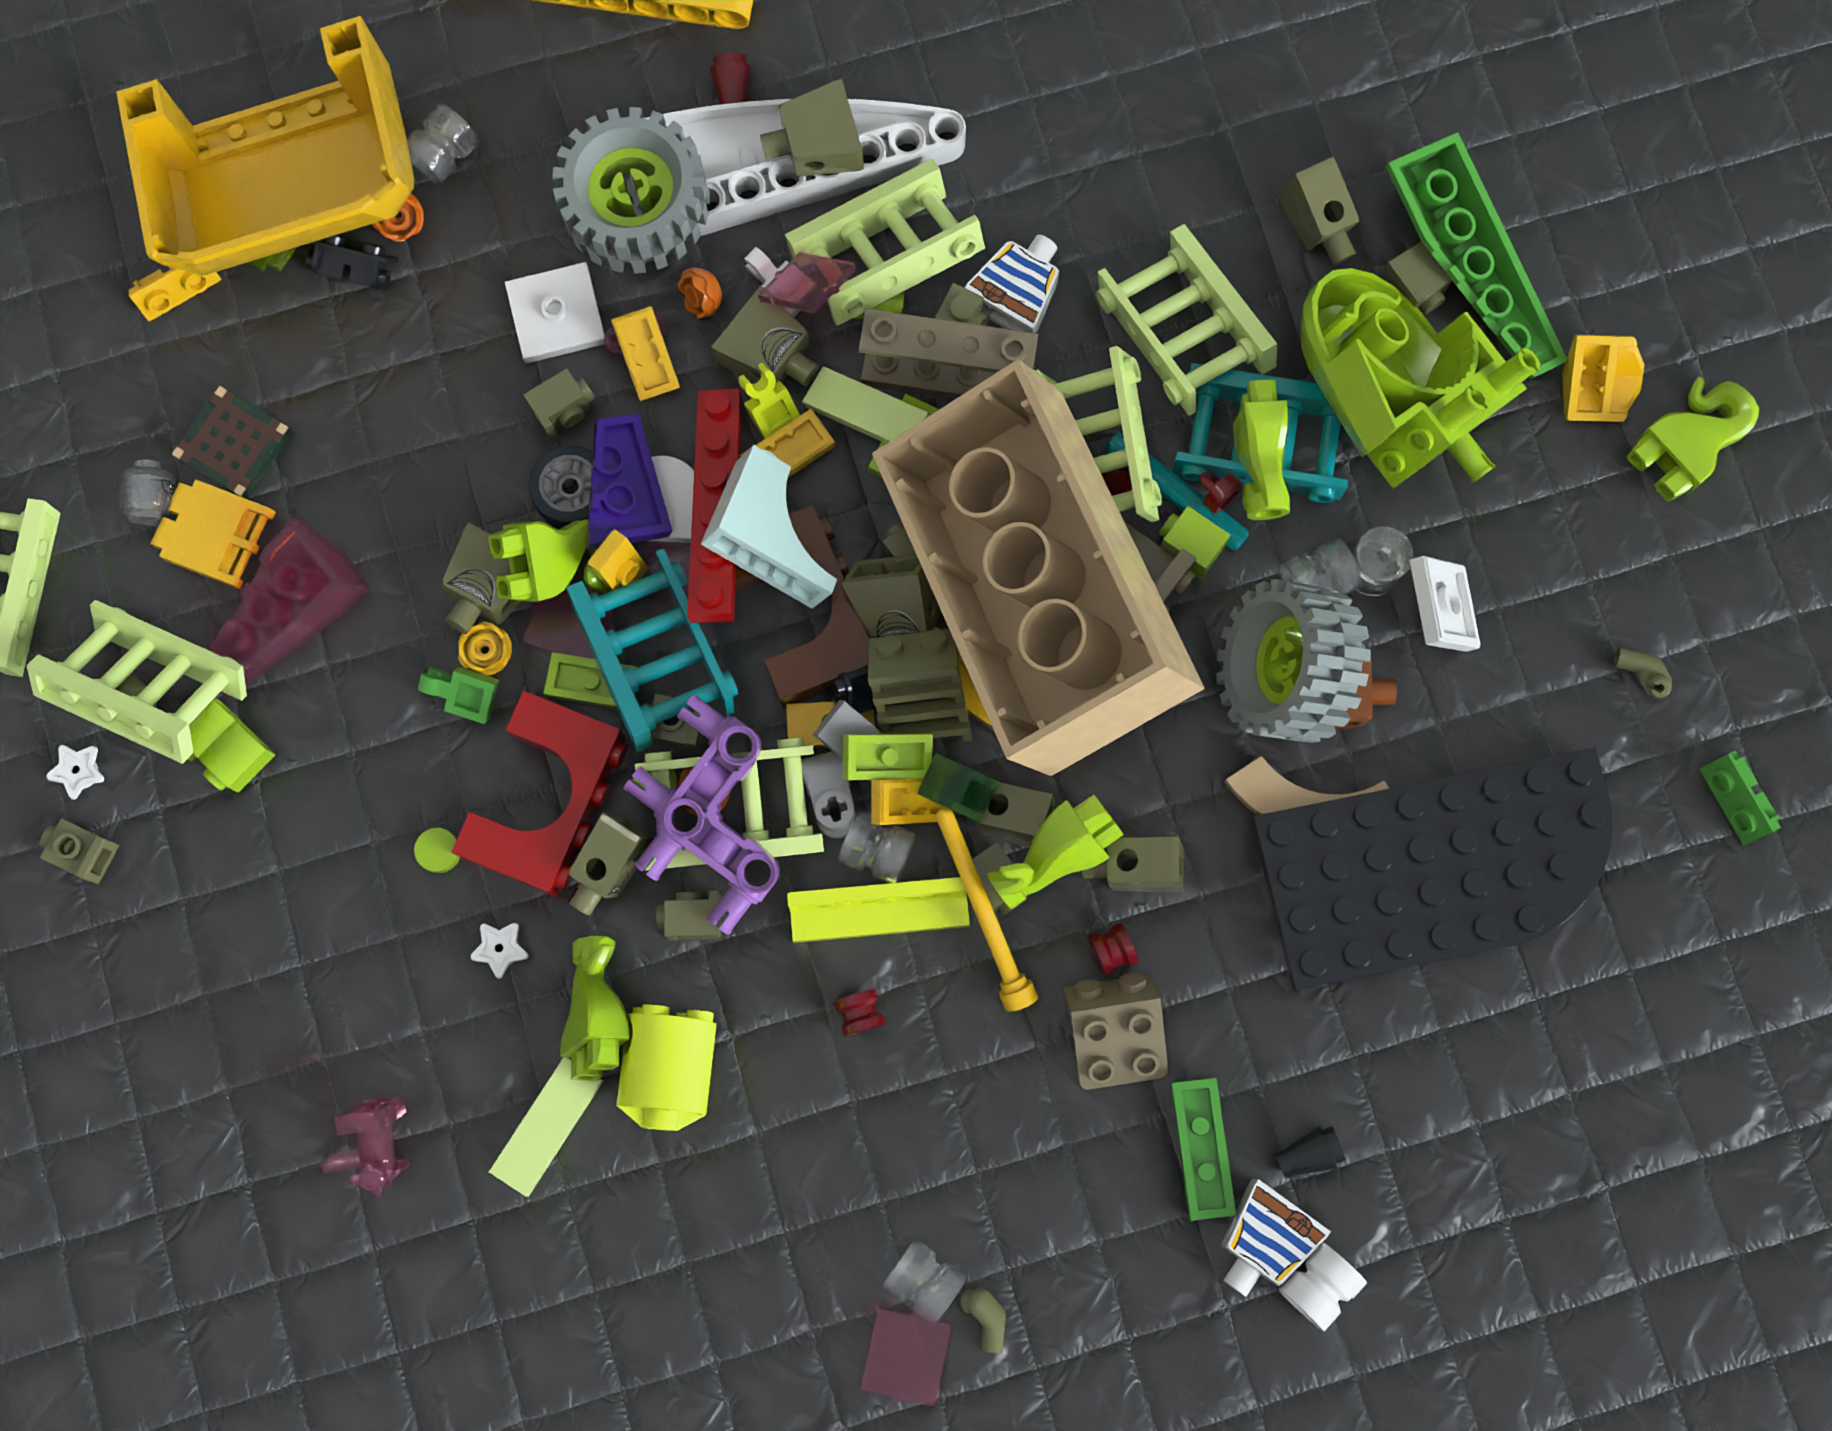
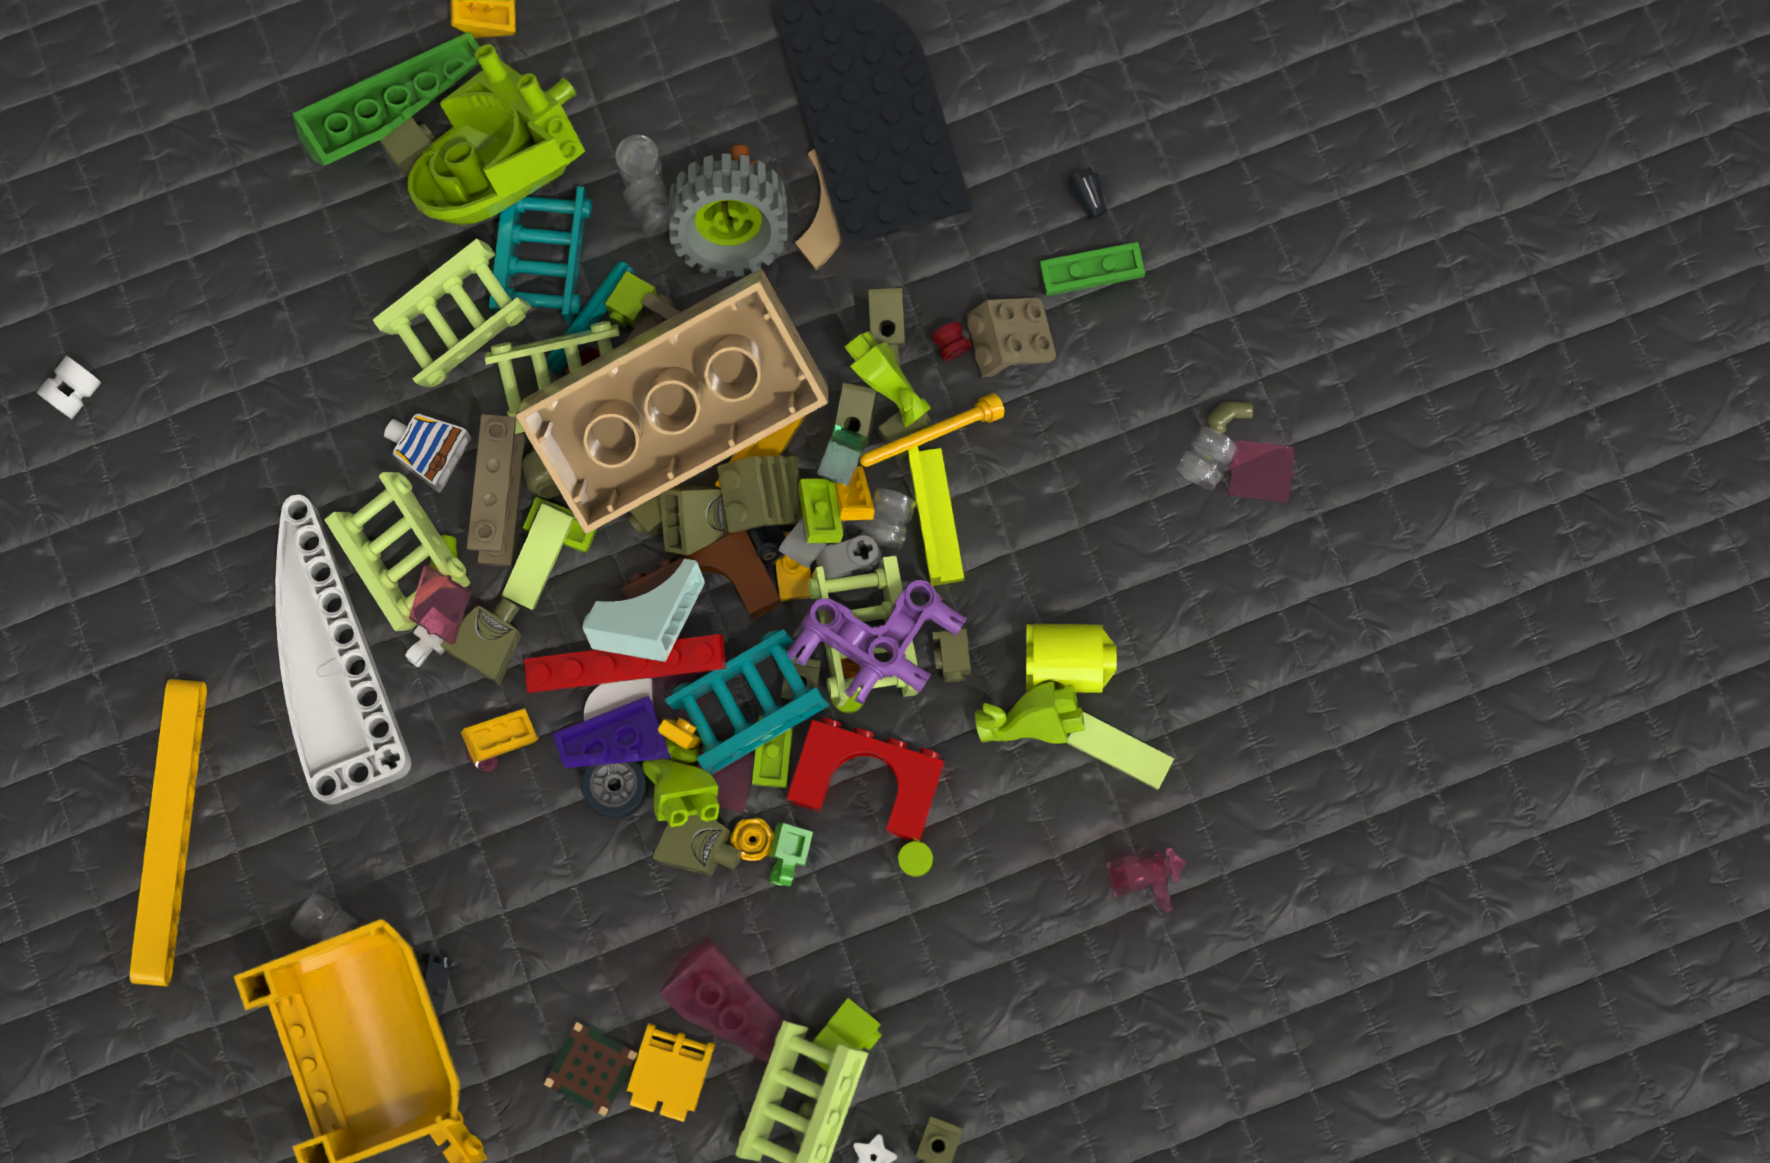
camera: 90 degrees left, 0 degrees up
(145, 492) = (639, 1131): clear head -> none
(511, 950) = (992, 810): white plate -> none
(555, 312) = (465, 816): white plate -> none
(559, 402) = (545, 800): olive brick -> none
(617, 844) = (901, 716): olive torso -> none
(639, 149) = (358, 714): light grey wheel -> none
(700, 291) = (444, 698): orange plate -> none
(730, 77) = (258, 691): dark red cone -> none
(769, 402) = (538, 631): neon yellow plate -> none
(799, 442) = (568, 612): yellow plate -> none
(817, 133) = (311, 606): olive torso -> none
(859, 1012) = (1014, 522): dark red wheel -> none
(963, 307) = (455, 489): olive brick -> none
(1220, 491) = (591, 280): dark red tile -> none
(1260, 447) = (553, 248): lime hips -> none
(1268, 1238) = (1151, 218): torso -> none
(1321, 209) = (355, 217): olive torso -> none
(1322, 1286) = (1179, 177): white wheel -> none
(1445, 604) = (670, 112): white plate -> none

